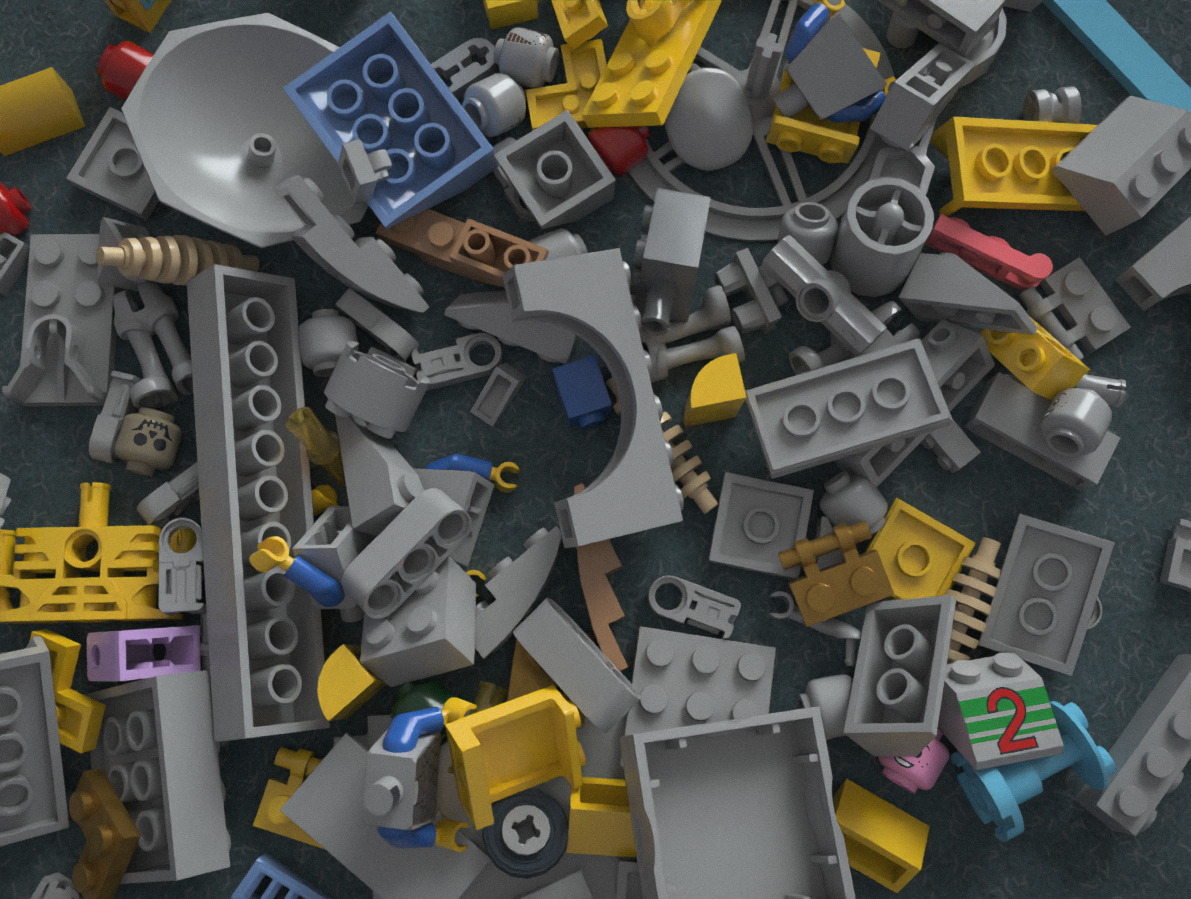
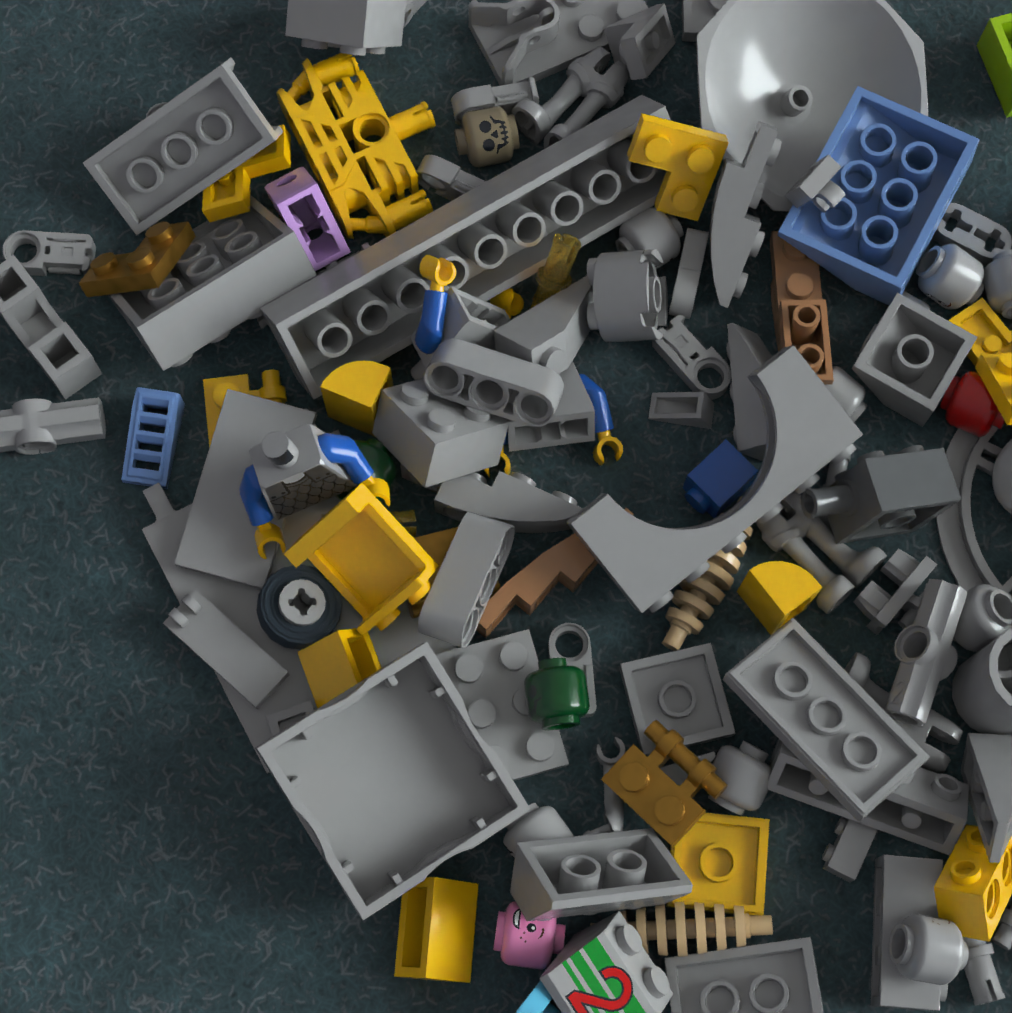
camera: 65 degrees right, 5 degrees down
(172, 258) = (653, 68): tan piece -> none
(180, 572) = (387, 212): light grey piece -> none
(271, 270) = (686, 154): none -> yellow plate
(717, 631) = (556, 694): none -> dark green head

